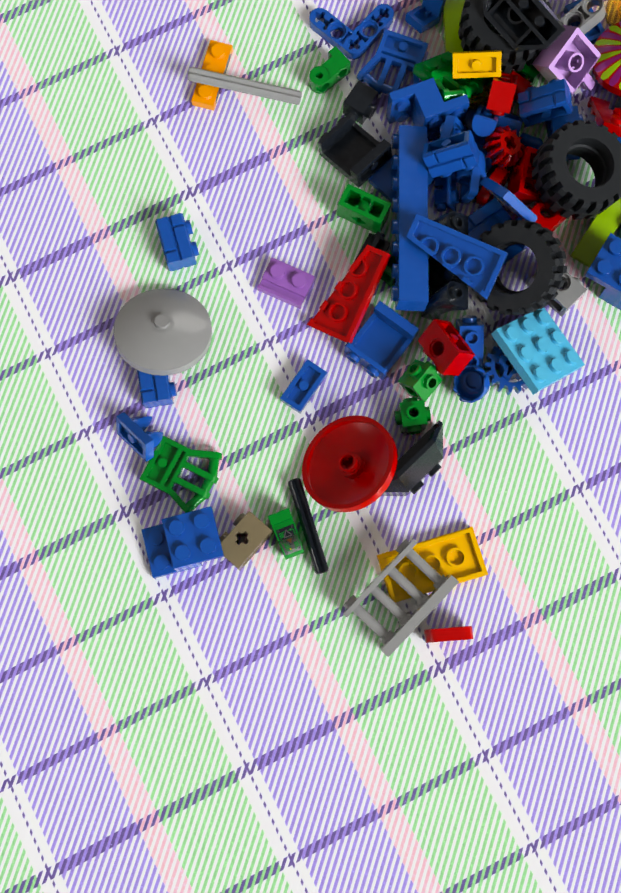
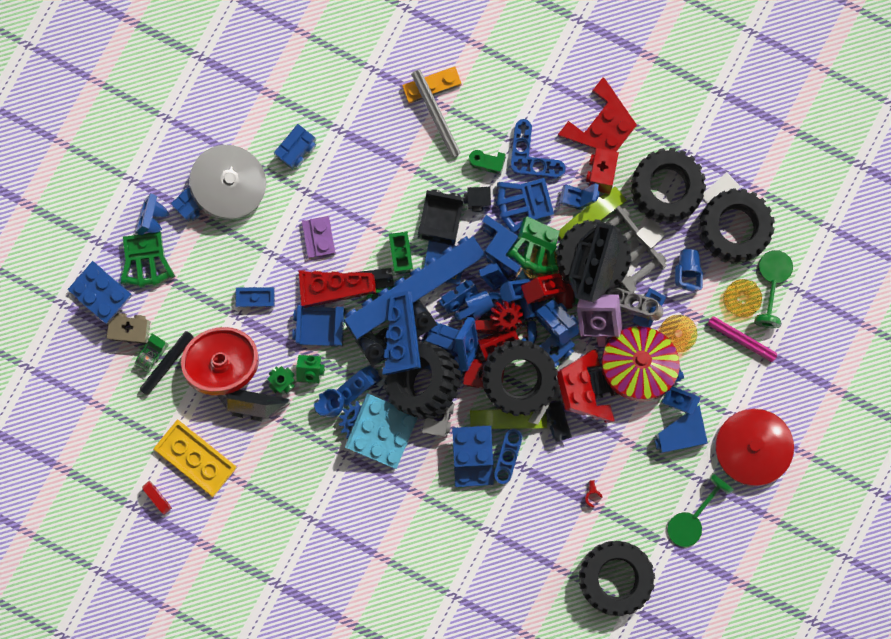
camera: 55 degrees right, 5 degrees up
(408, 621) = (146, 465): light grey fence -> none
(446, 347) = (340, 370): red brick -> none
(451, 154) = (471, 284): blue brick -> none
(477, 64) = (544, 259): yellow panel -> none

